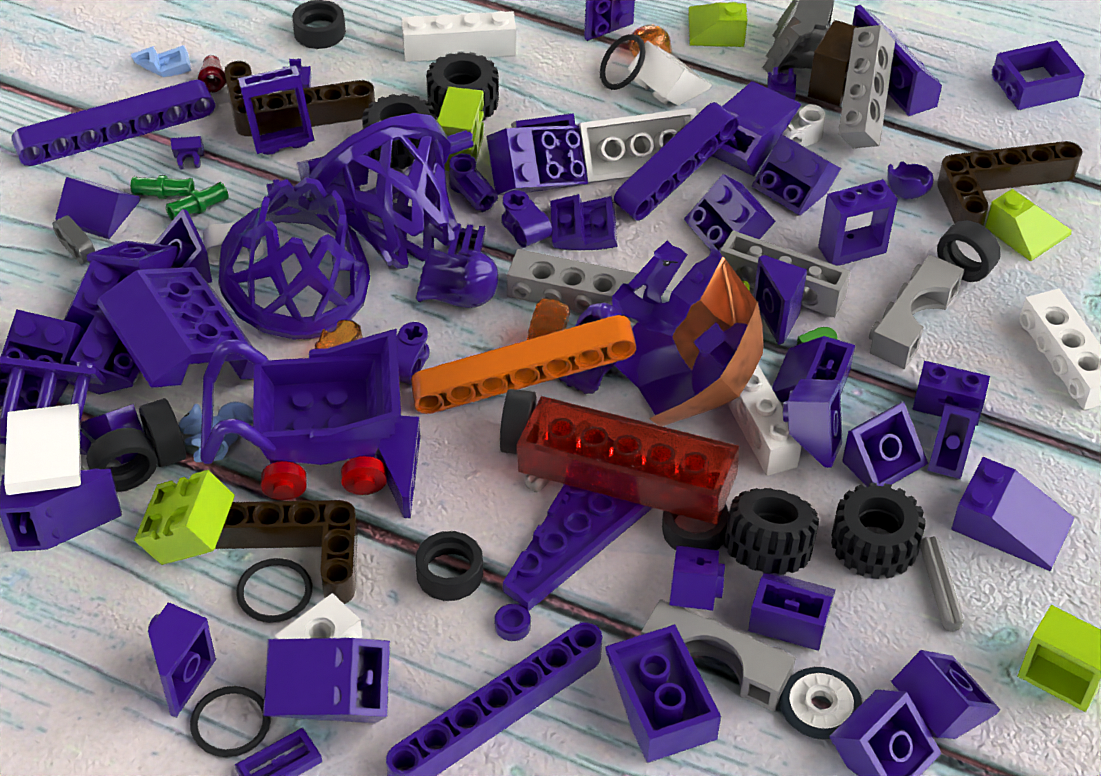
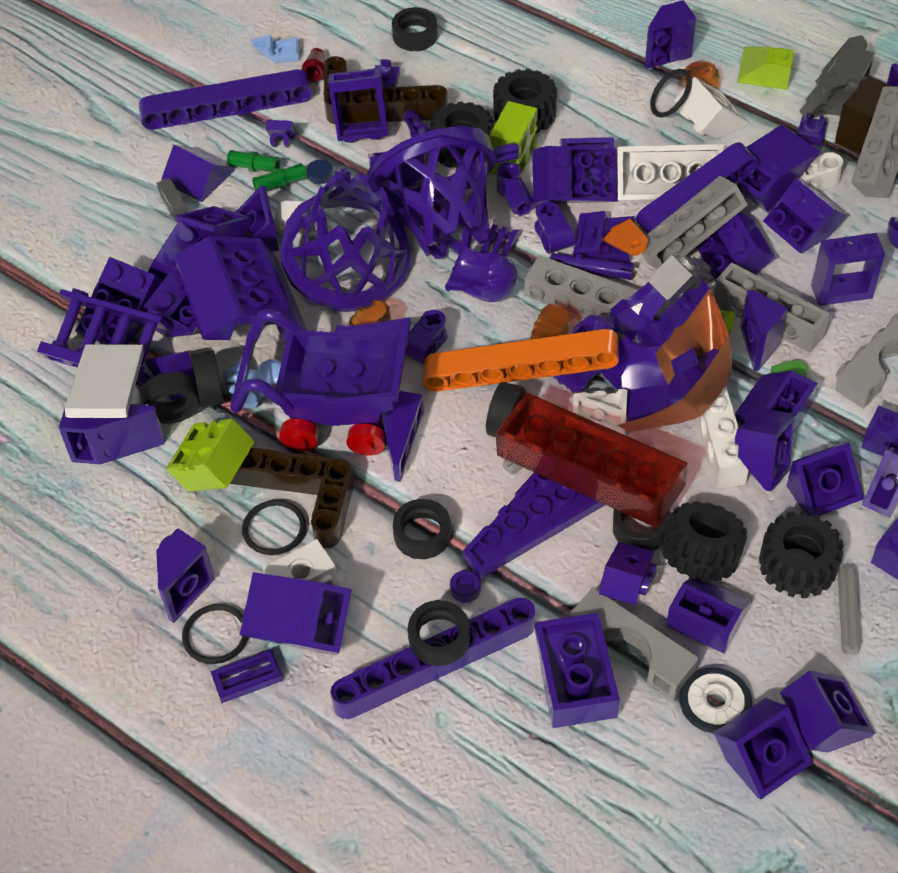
camera: 15 degrees right, 5 degrees up
(242, 189) = (319, 171): none -> dark blue tile
(345, 123) = (417, 126): none -> dark purple pin
(479, 33) = (532, 51): white slope -> none
(496, 650) = (445, 611): none -> black tyre
(589, 254) = (596, 266): none -> dark purple pin
(611, 219) = (627, 238): none -> orange piece
(628, 402) = (601, 407): none -> white wing
(679, 195) = (694, 221): none -> light grey brick
(683, 249) = (679, 275): none -> light grey arch

